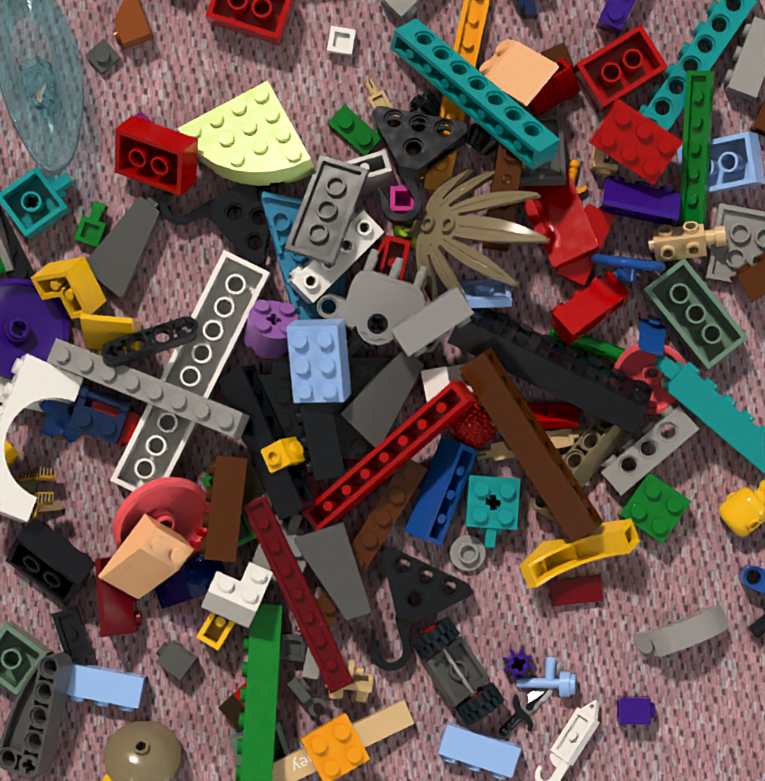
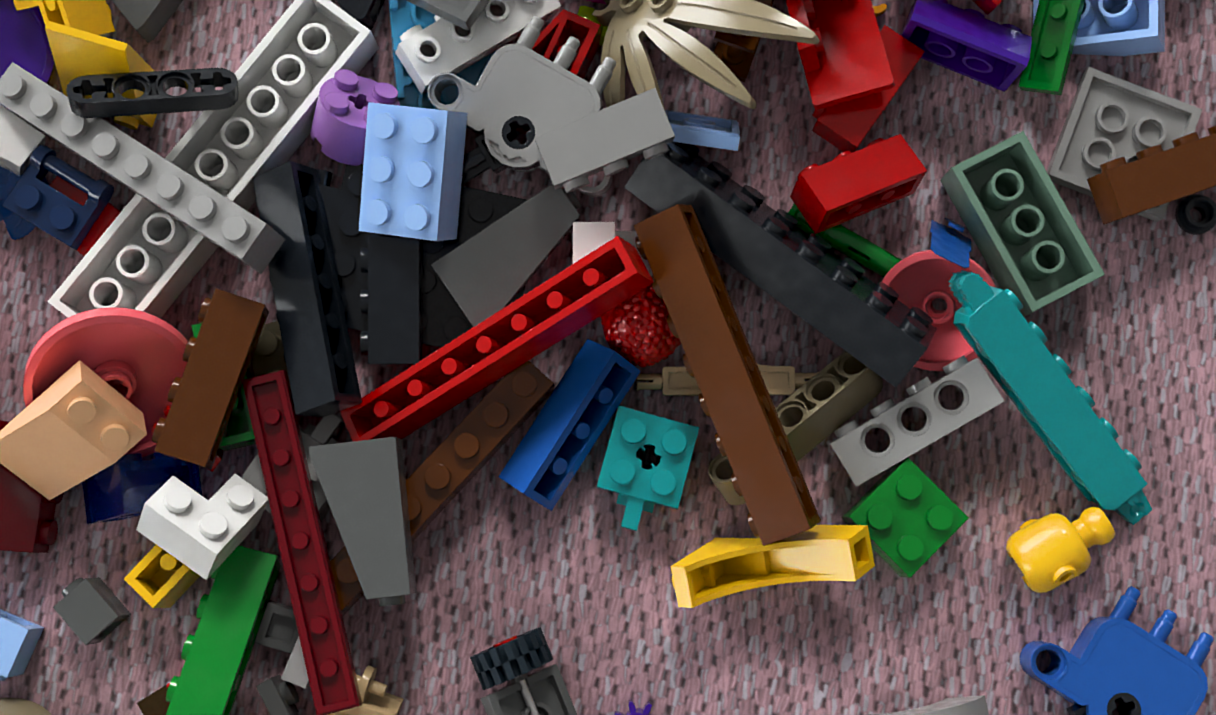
camera: 10 degrees right, 5 degrees down
(283, 454) = (325, 308): yellow bracket -> none
(406, 615) = (473, 611): black piece -> none
(467, 552) = (593, 531): light grey piece -> none
(556, 415) = (777, 342): red plate -> none
(575, 590) = (754, 627): dark red tile -> none
(627, 266) = (932, 123): blue piece -> none
(684, 241) = (1030, 109): tan brick -> none

